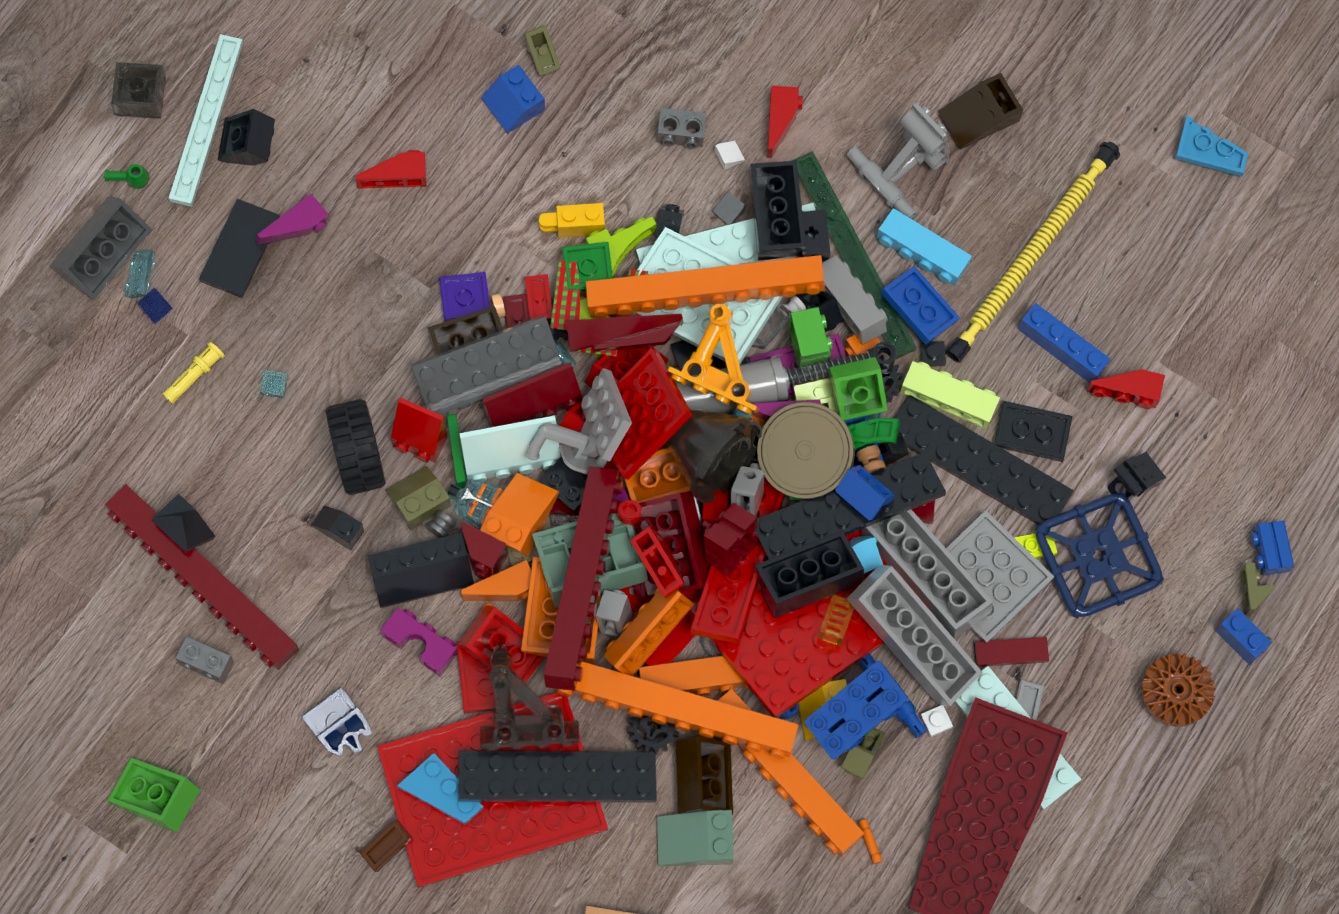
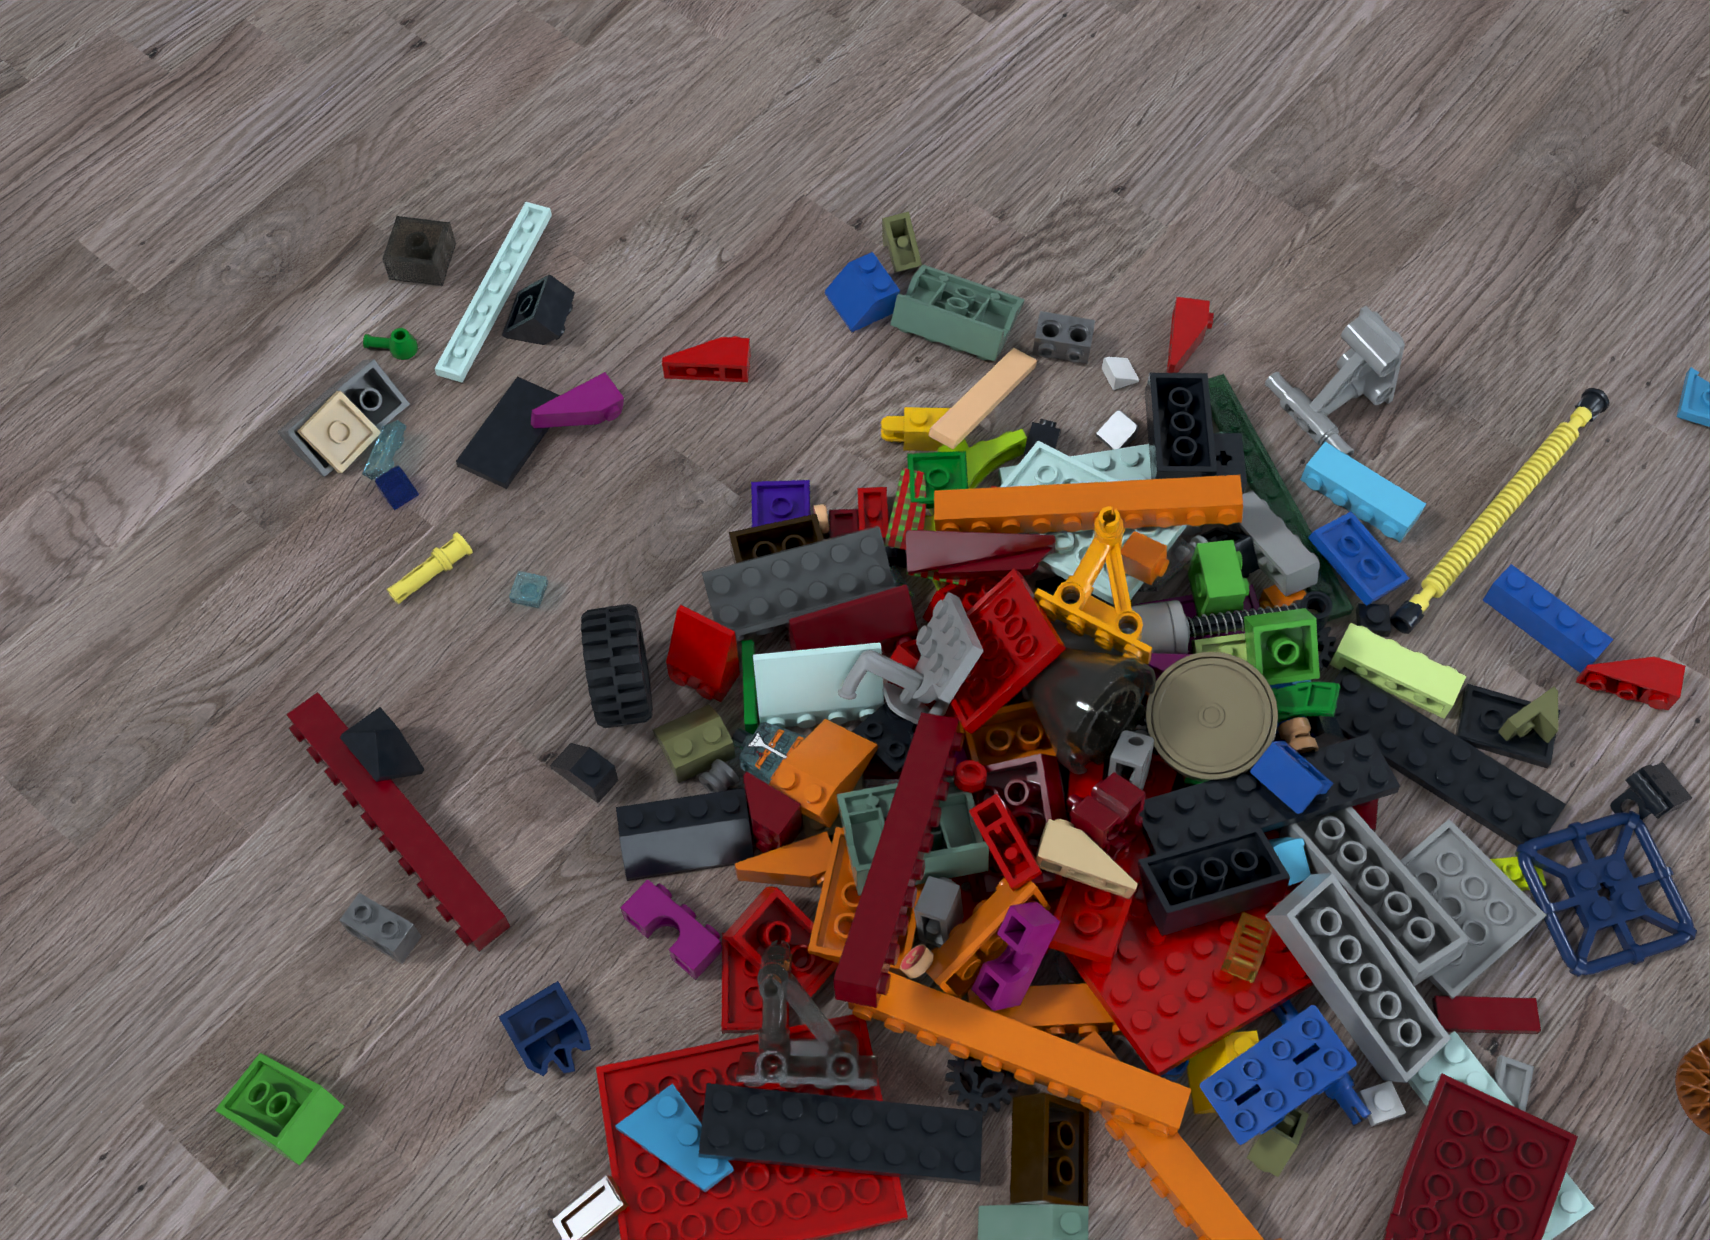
camera: 10 degrees right, 10 degrees down
(102, 263) = (339, 431): none -> tan tile
(593, 110) = (957, 312): none -> sand green piece
(600, 652) = (917, 961): none -> light nougat tile
(619, 191) = (982, 398): none -> light nougat tile
(677, 627) = (1006, 979): none -> magenta arch
(708, 567) = (1075, 856): none -> tan slope
(750, 328) = (1144, 558): none -> orange brick
(981, 111) = (1440, 343): dark brown slope -> none
(1053, 422) = (1538, 715): none -> olive slope

